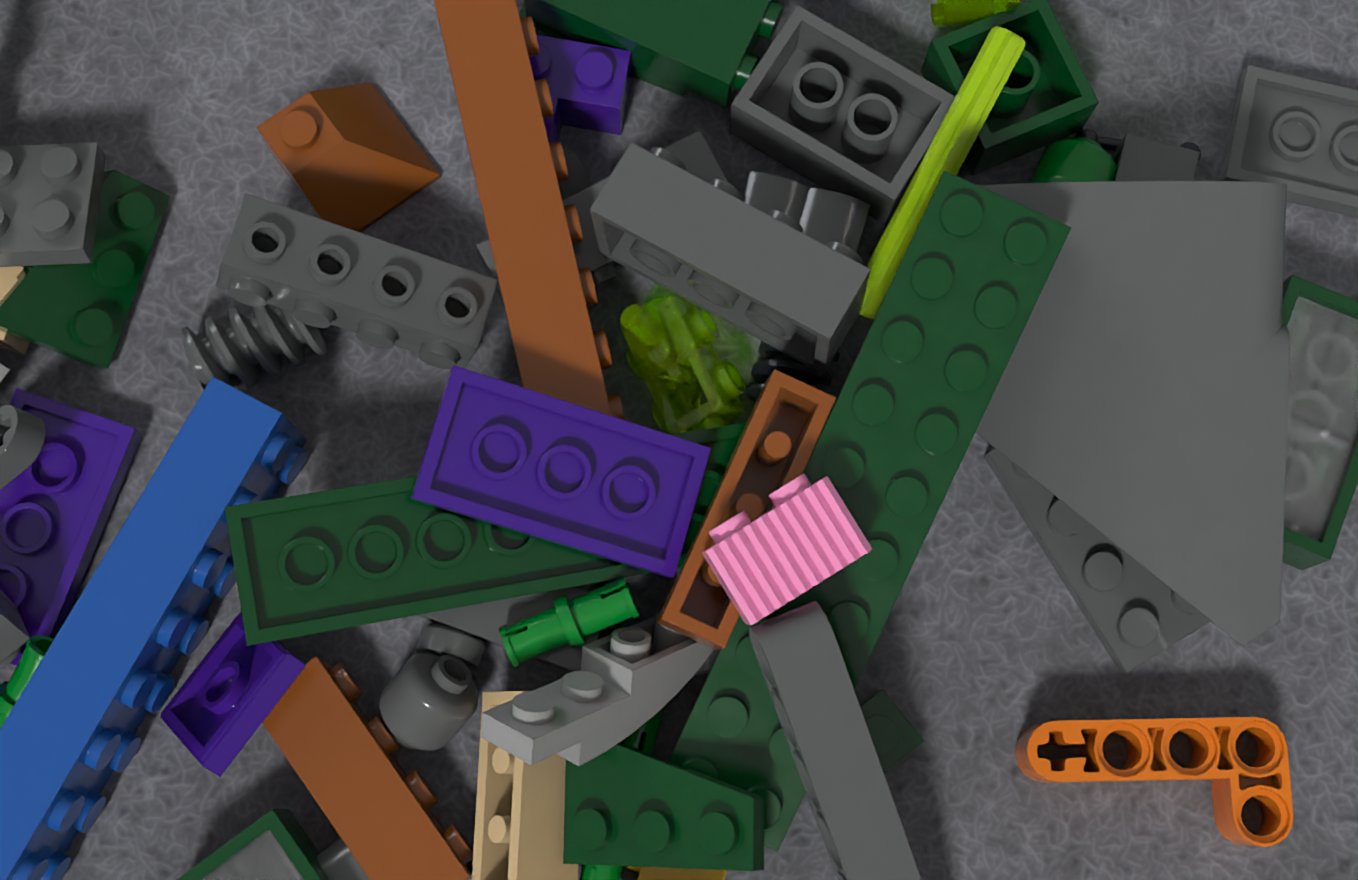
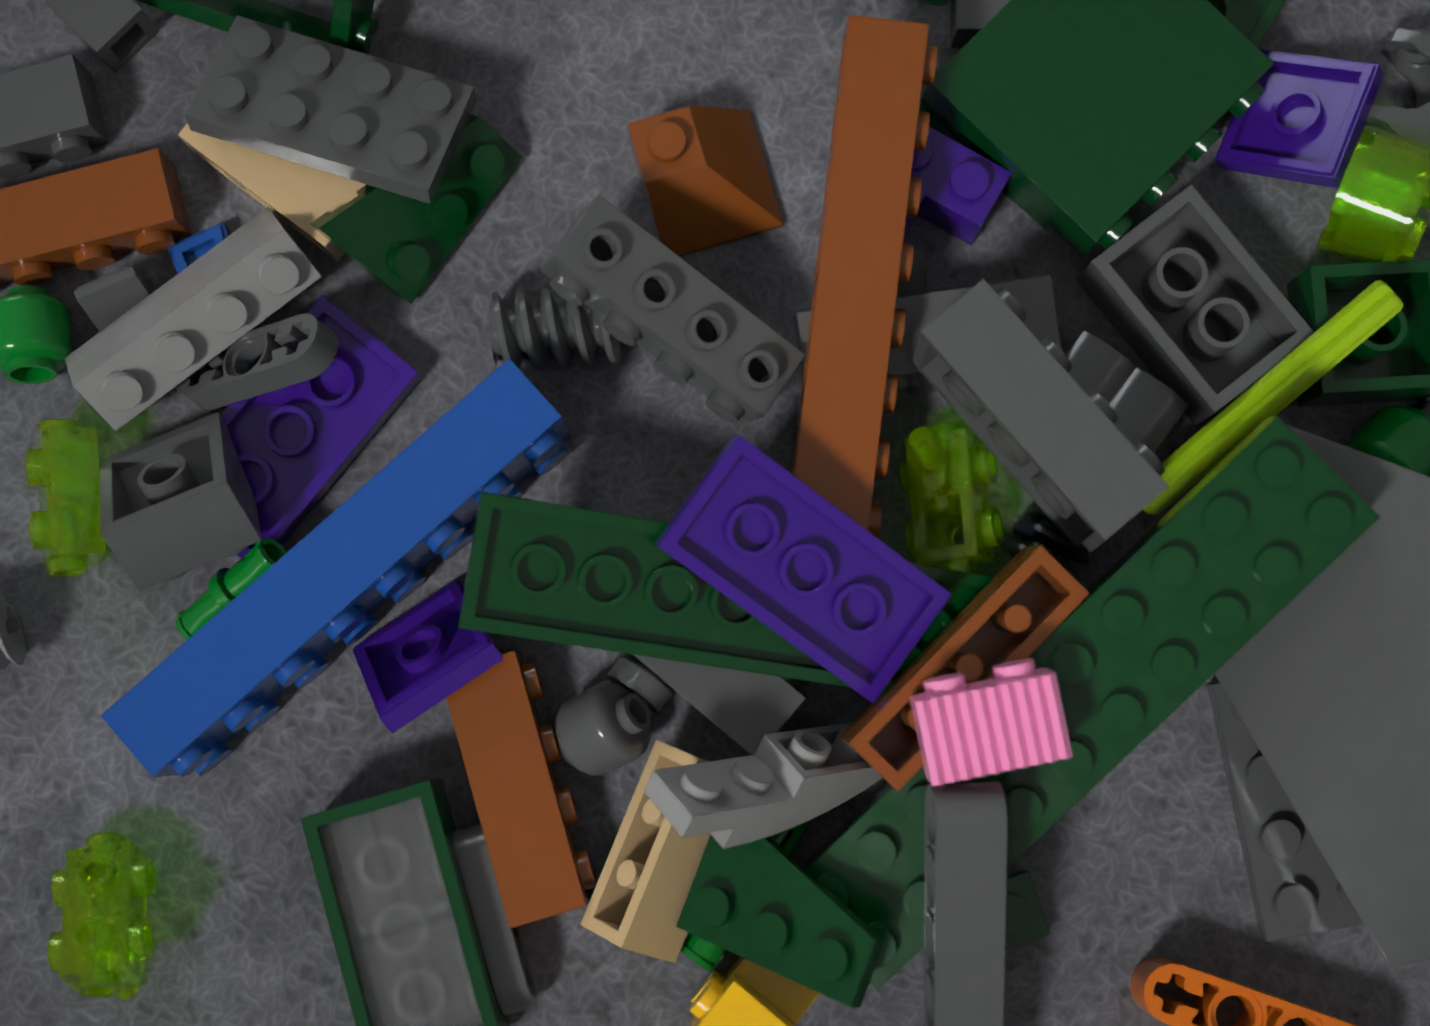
camera: 25 degrees right, 5 degrees up
(568, 621) = (759, 706): green pin -> none

